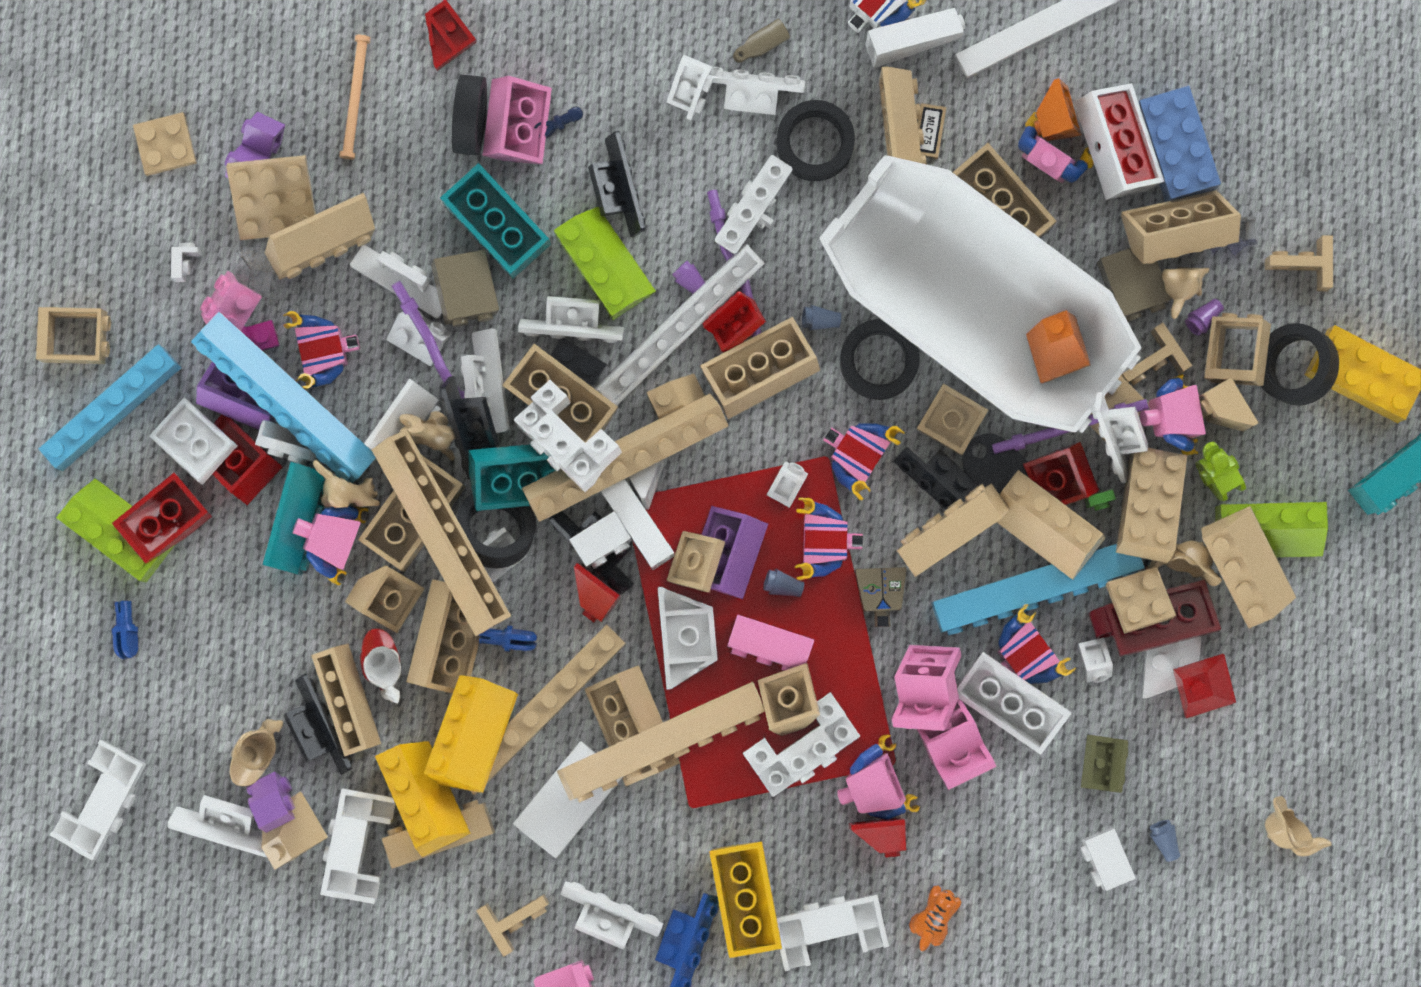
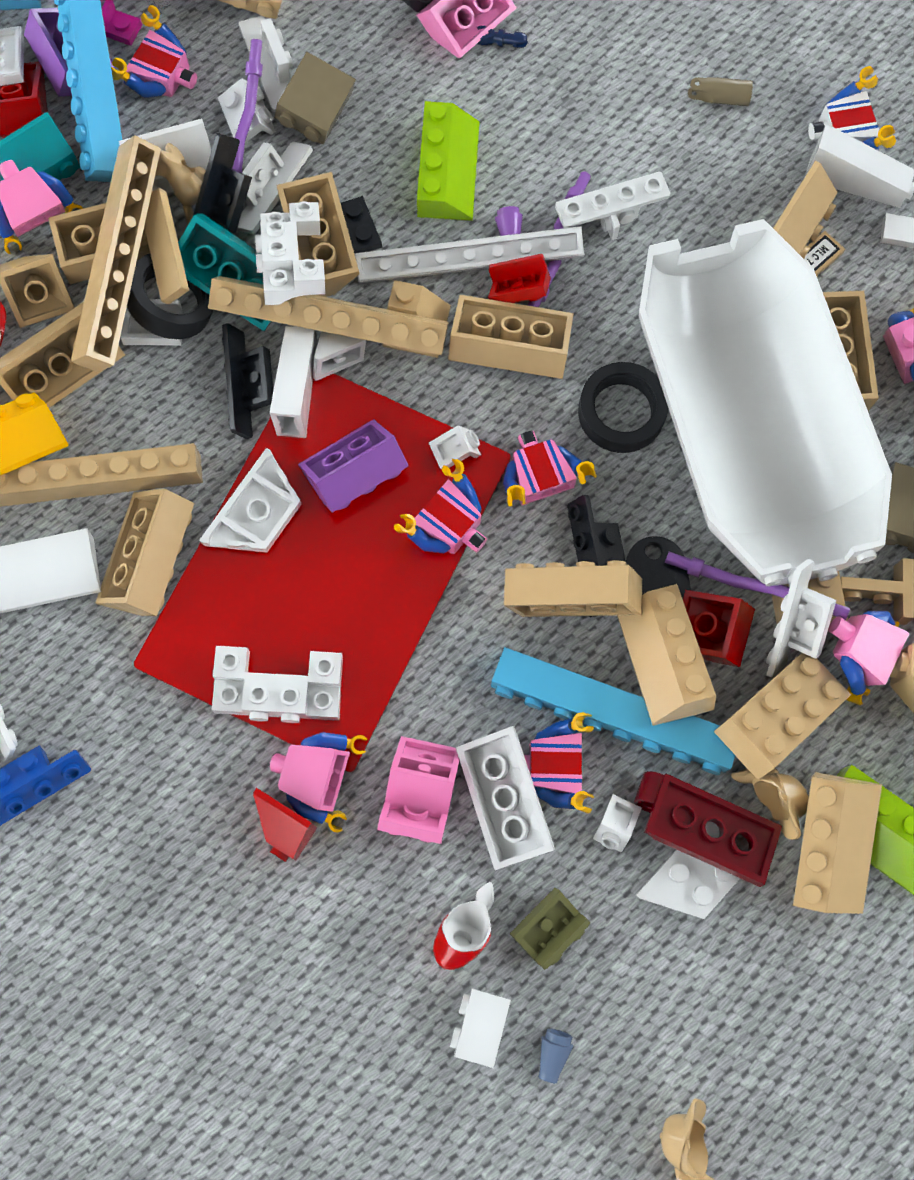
camera: 35 degrees right, 10 degrees down
(281, 442) = (57, 97): white bracket -> none
(341, 493) = (71, 174): tan animal -> none
(471, 501) = (165, 248): none -> tan tile
(495, 221) = (384, 67): teal brick -> none
(509, 639) = (104, 397): blue arm -> none
(571, 318) = (384, 185): white bracket -> none
(594, 595) = (207, 413): red slope -> none
(601, 540) = (247, 367): white brick -> none
(615, 186) = (504, 113): black bracket -> none
(661, 741) = (147, 573): tan brick -> none
(689, 85) = (633, 76): white bracket -> none
(696, 561) = (318, 449): tan plate -> none
(745, 899) = (103, 784): yellow slope -> none
(754, 92) = (681, 123): white bracket -> none
(769, 643) = (323, 568): bright pink slope -> none
(782, 584) = (379, 529): sand blue cone -> none
(789, 700) = (296, 630): tan slope -> none
(820, 318) = (597, 337): sand blue cone -> none
(823, 110) = (716, 166): black tyre -> none
(829, 922) = (173, 873): white bracket -> none
(881, 592) = (464, 605): dark tan torso -> none
(926, 687) = (434, 719): bright pink bracket -> none
(933, 921) = (264, 951): orange animal -> none
(952, 419) = (649, 505): tan plate -> none
(1052, 809) = (464, 931): none -> white hair
(1057, 346) = (799, 502): orange slope -> none
(1100, 500) = (734, 676): bright green plate -> none
(1140, 600) = (705, 795): tan plate -> none
(1204, 685) = (706, 930): red slope -> none
(1219, 471) = (872, 732): lime hinge -> none

